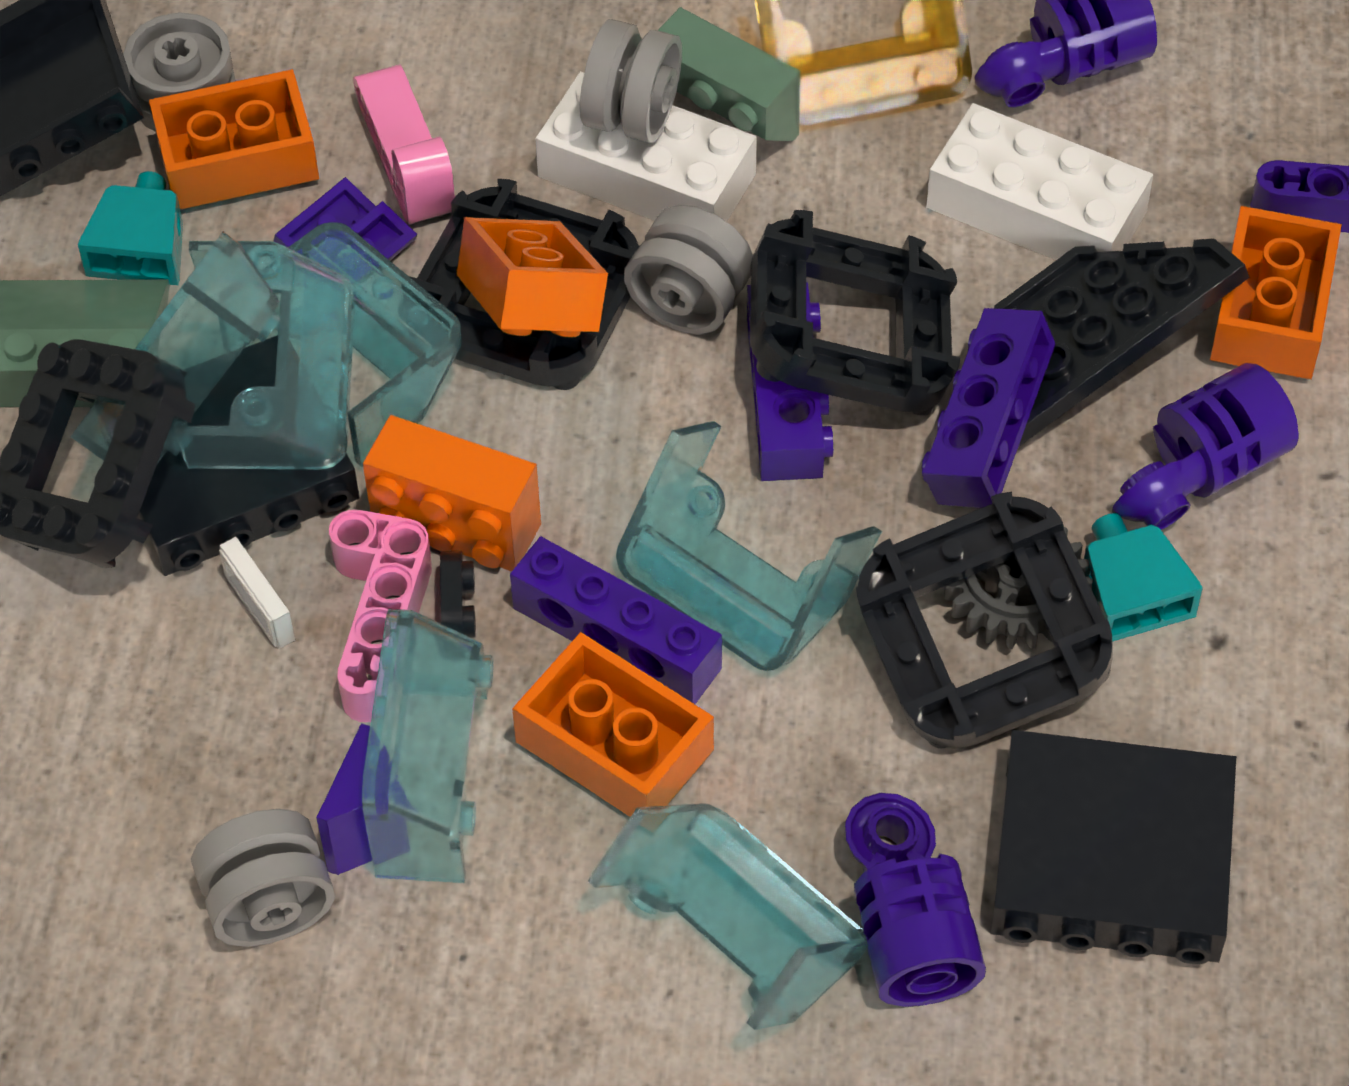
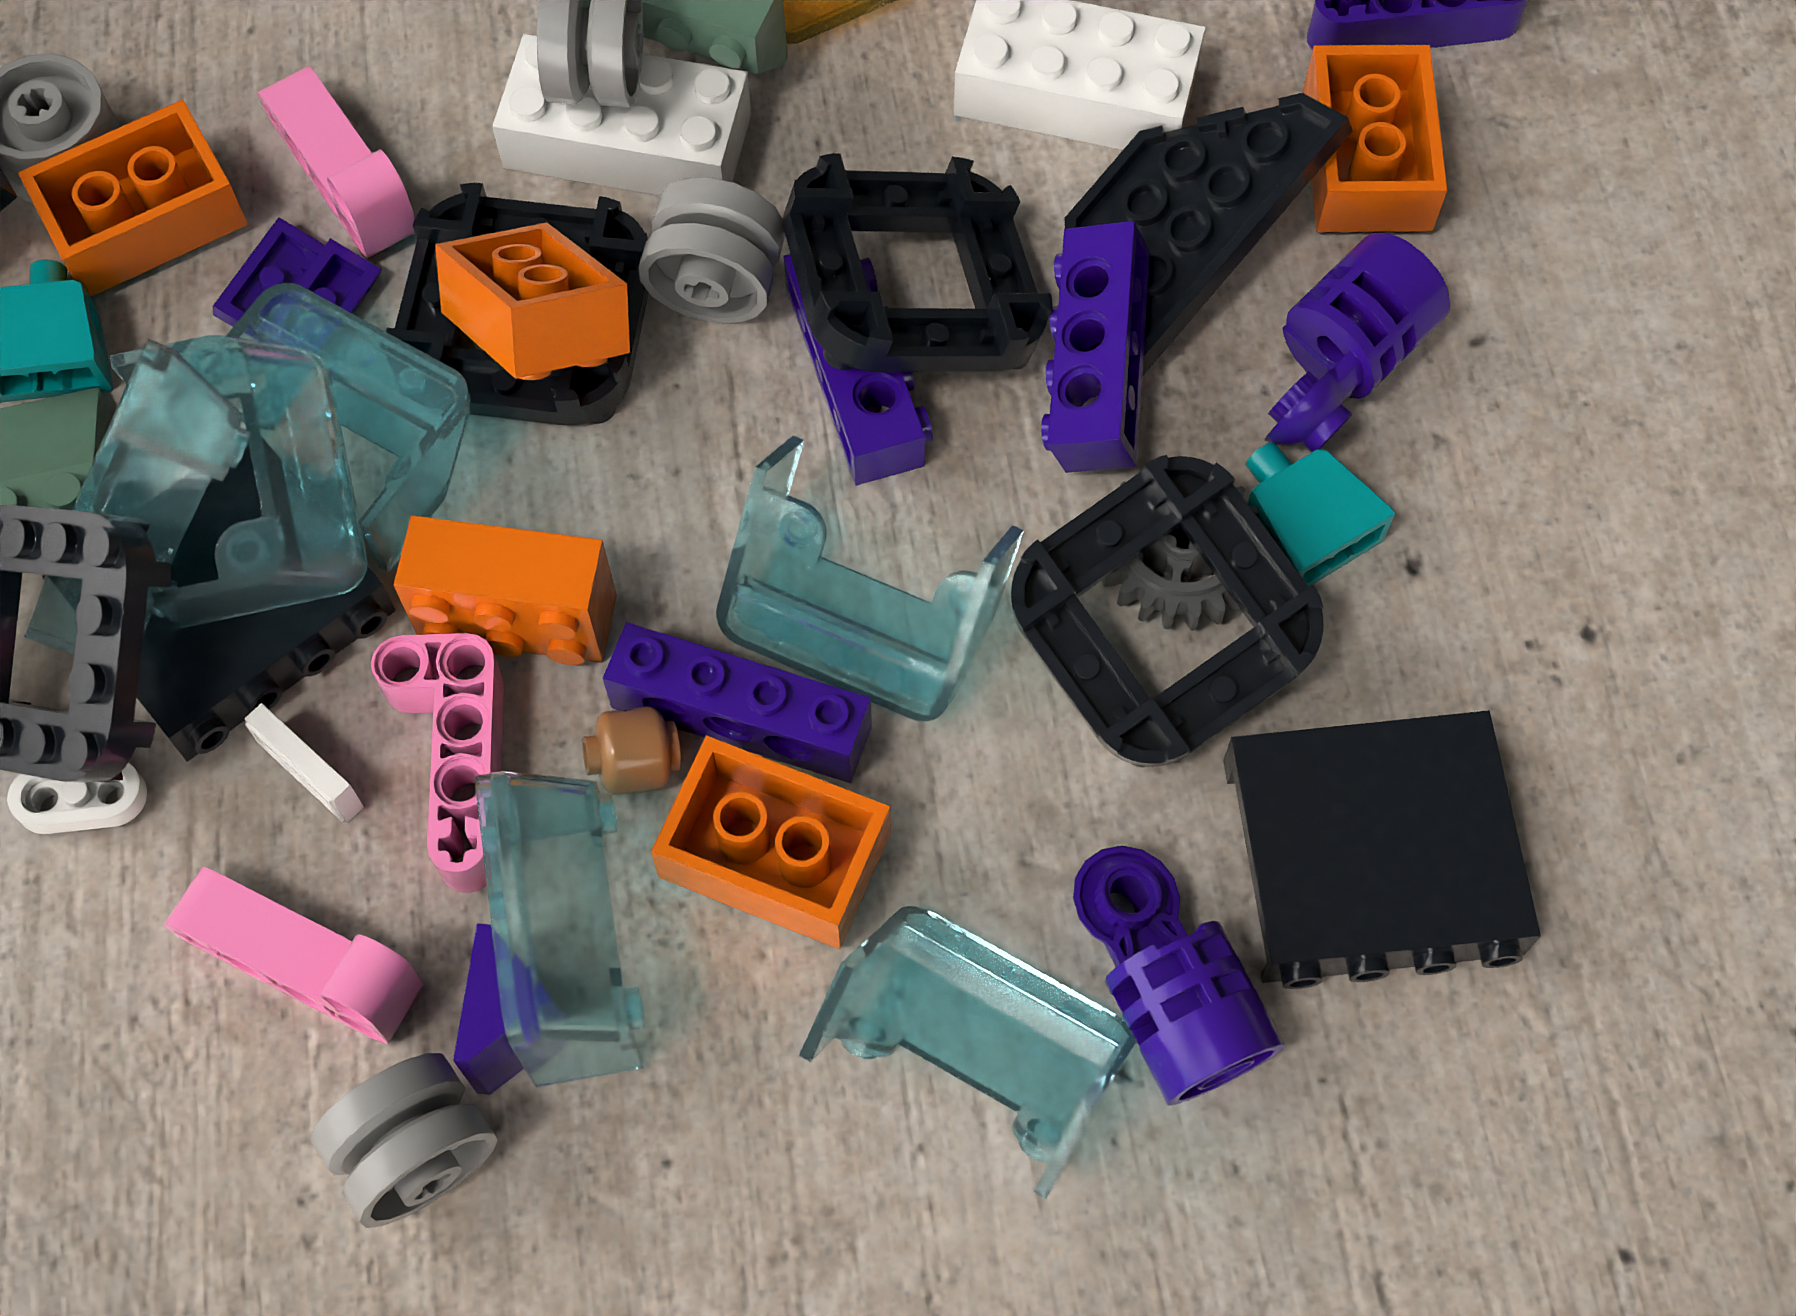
camera: 15 degrees left, 10 degrees up
(74, 582) = (78, 804): none -> white plate
(251, 760) = (343, 978): none -> bright pink beam
(455, 580) = (537, 692): black plate -> none
(520, 639) = (632, 750): none -> medium nougat head

